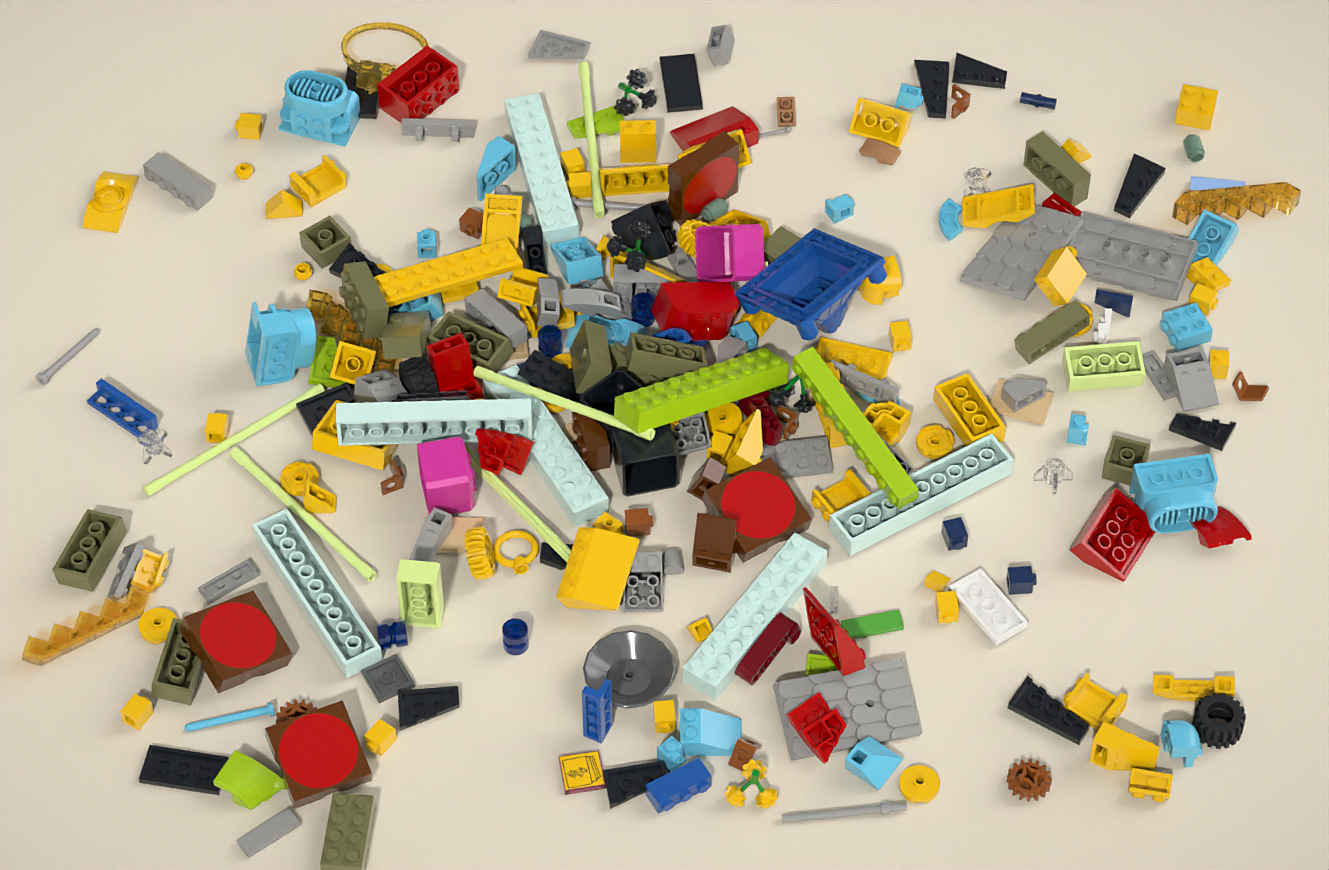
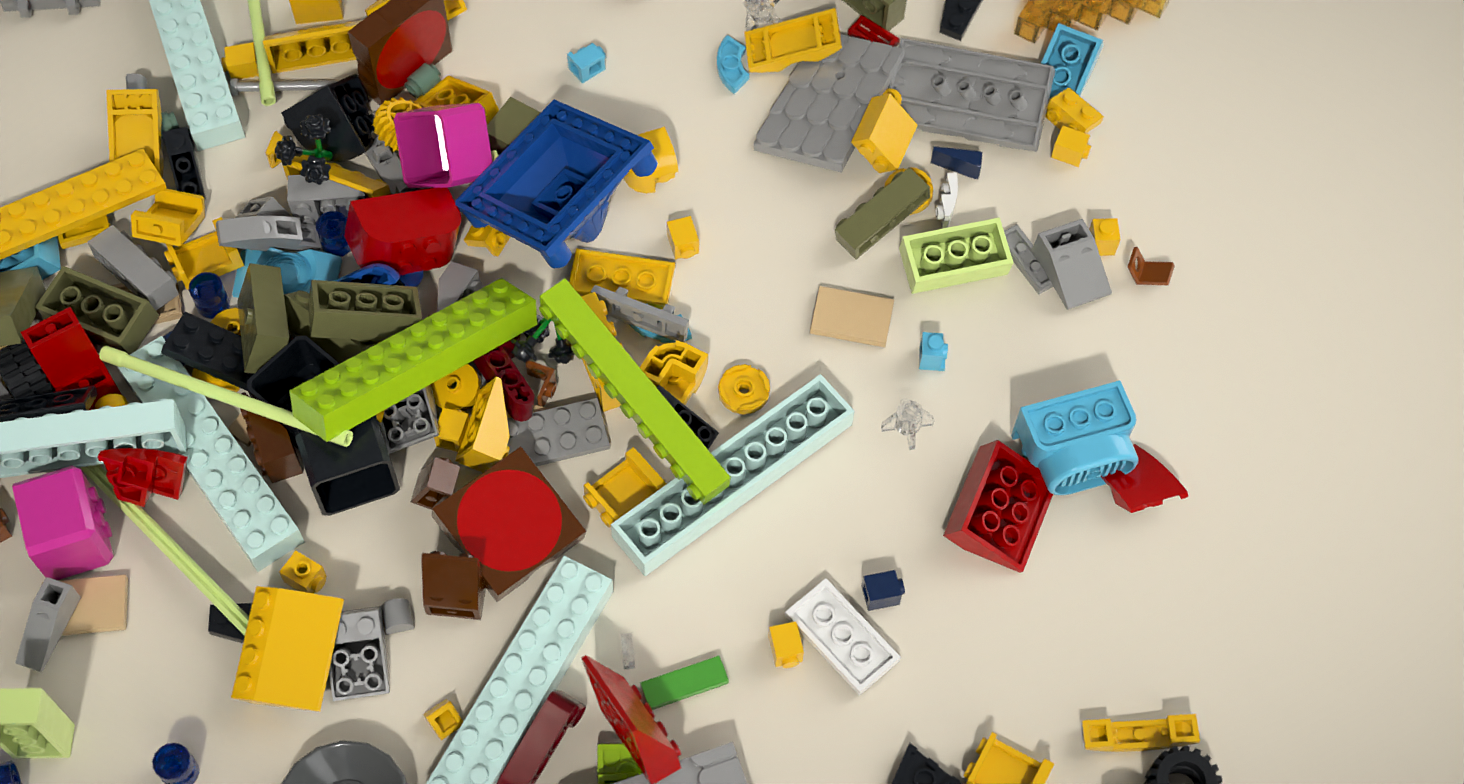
camera: 10 degrees left, 10 degrees up
(426, 239) = (36, 160): medium azure brick -> none
(471, 223) = (95, 129): dark orange brick -> none
(479, 553) = (116, 640): yellow gear -> none
(495, 166) = (123, 46): medium azure slope -> none
(519, 564) = (179, 643): yellow piece -> none
(547, 302) = (201, 238): light grey slope -> none
(572, 162) = (230, 29): yellow brick -> none
(577, 260) = (242, 169): medium azure slope -> none
(638, 522) = (344, 560): dark orange brick -> none
(745, 333) = (474, 256): medium azure brick -> none
(936, 581) = (767, 603): yellow slope -> none
(954, 534) = (785, 528): dark blue brick -> none
(967, 410) = (785, 341): yellow brick -> none
(1022, 393) = (853, 306): light grey slope -> none
(1121, 458) = (1002, 391): olive brick -> none
(1186, 327) = (1054, 187): medium azure brick -> none
(1205, 432) = (1102, 337): black wing -> none

